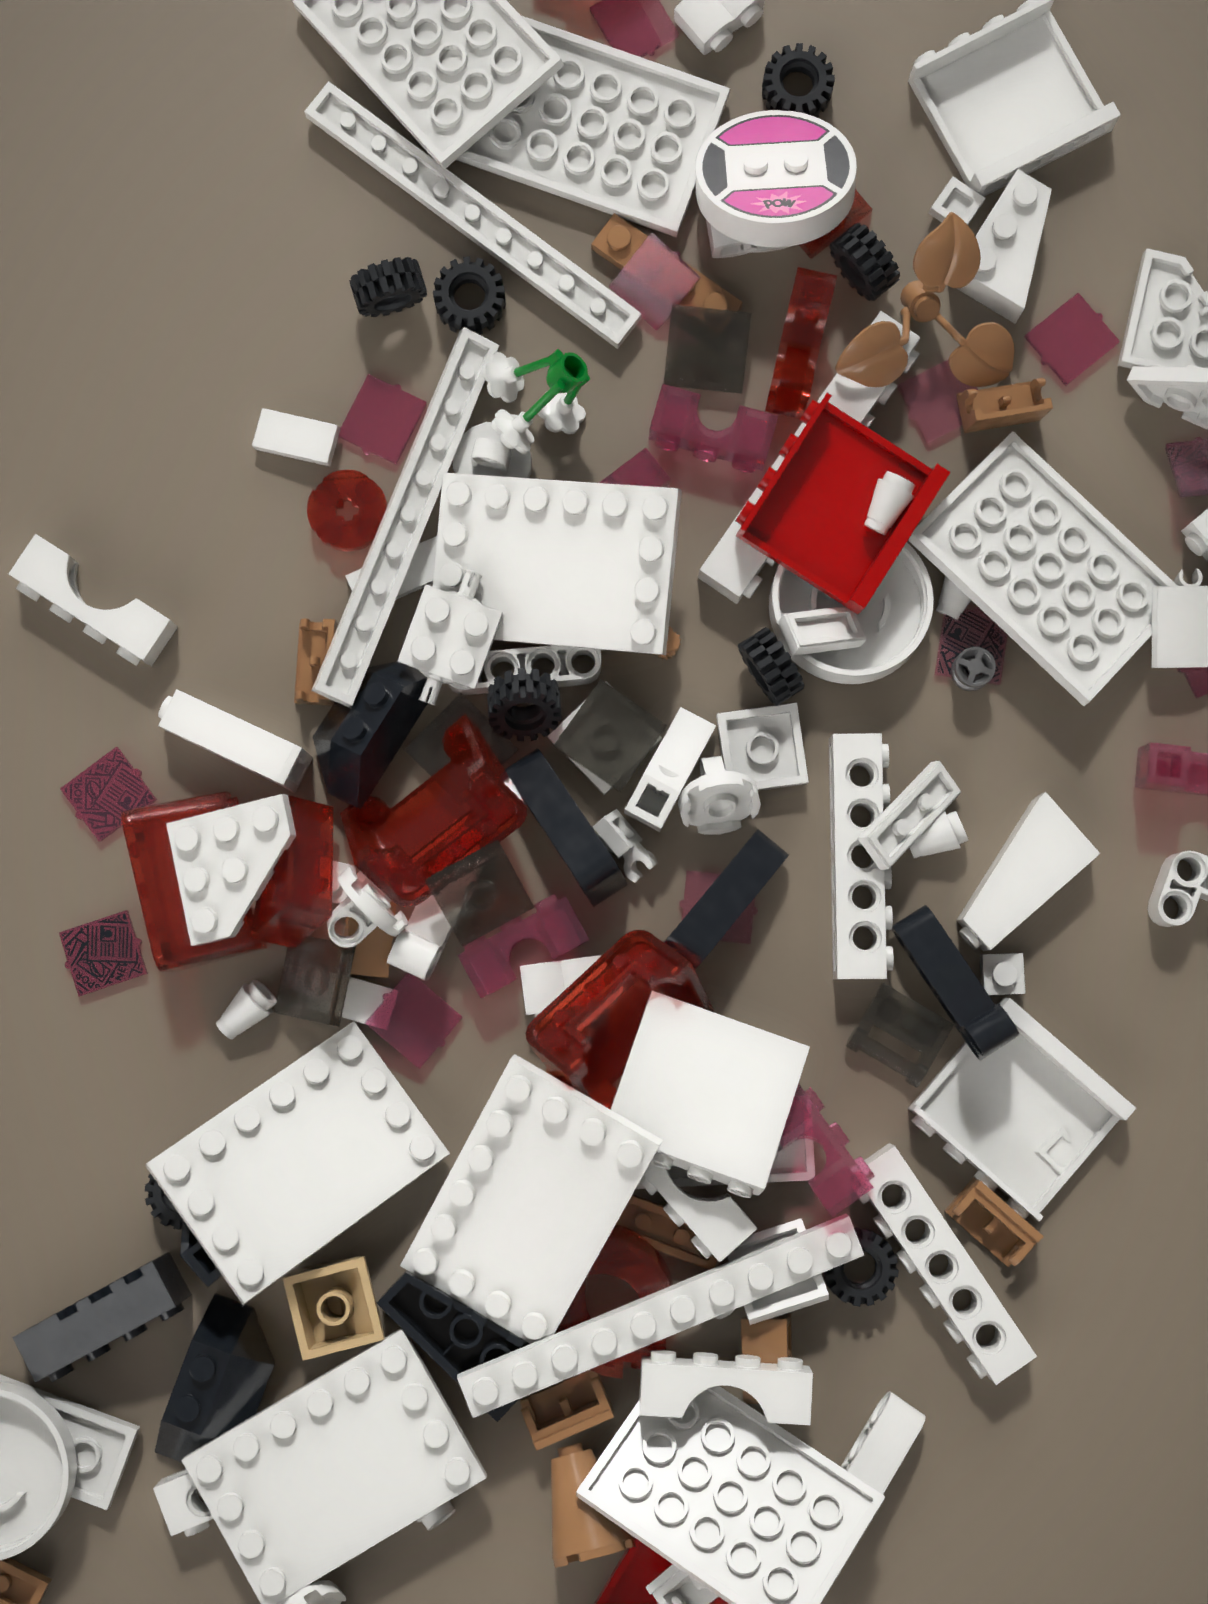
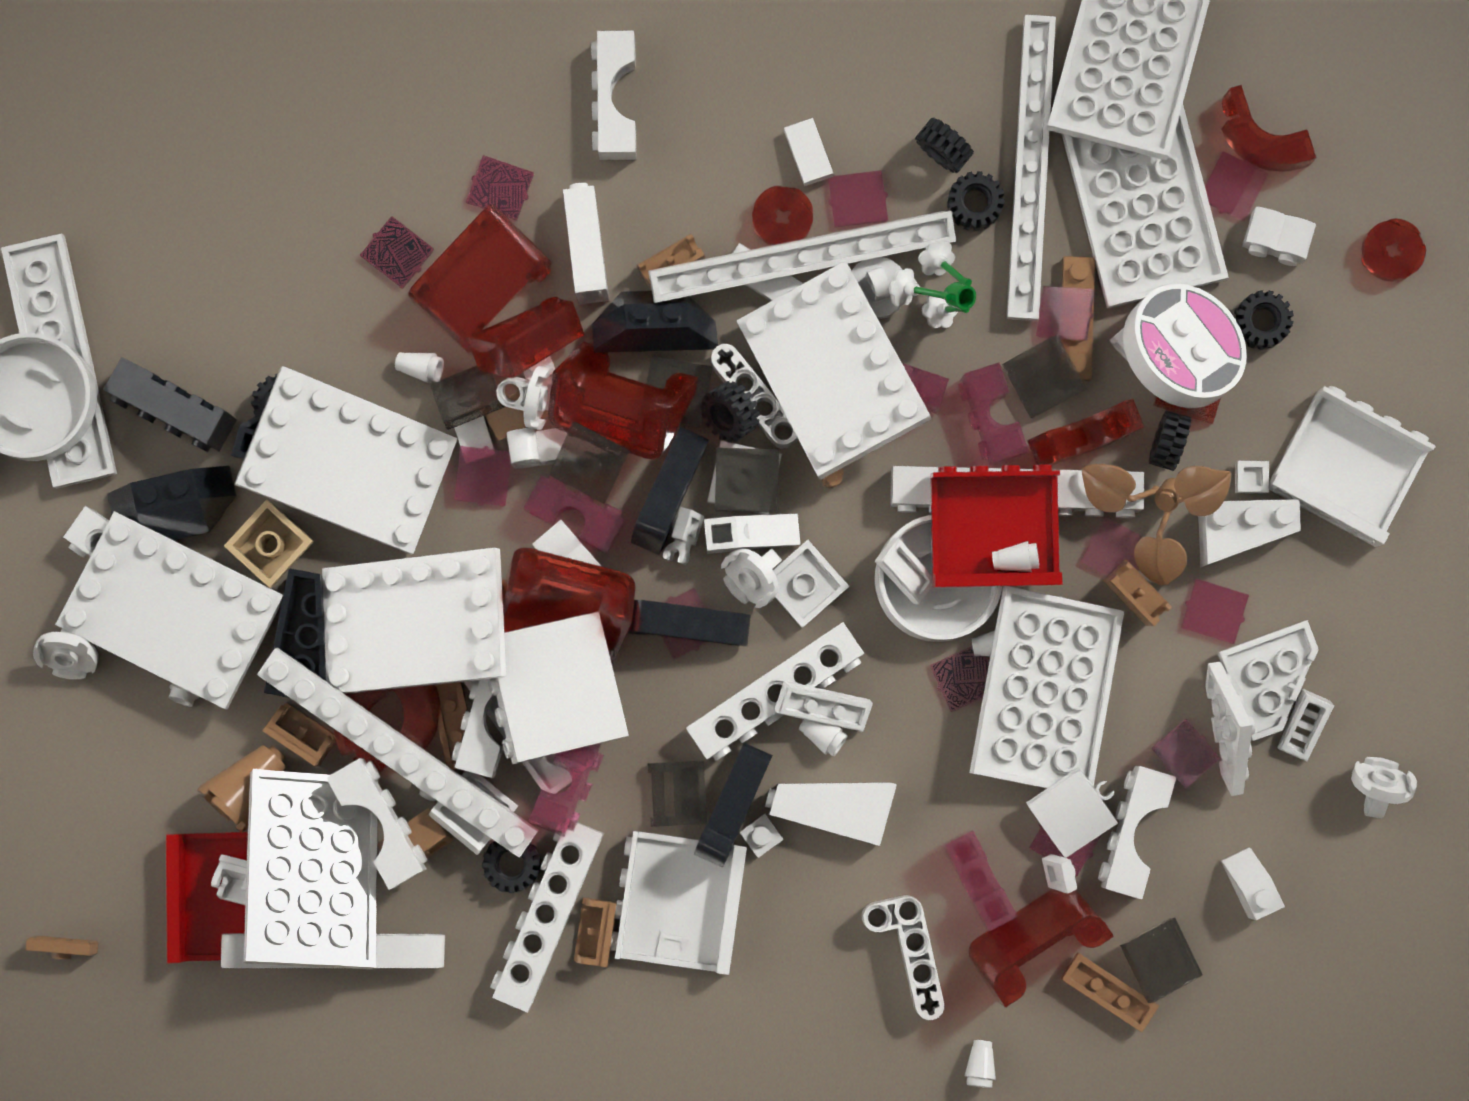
camera: 55 degrees right, 0 degrees up
(227, 862) = (502, 291): white plate -> none
(450, 637) = (741, 335): white plate -> none
(771, 666) = (861, 553): black tyre -> none
(977, 661) = (953, 685): flat silver wheel -> none

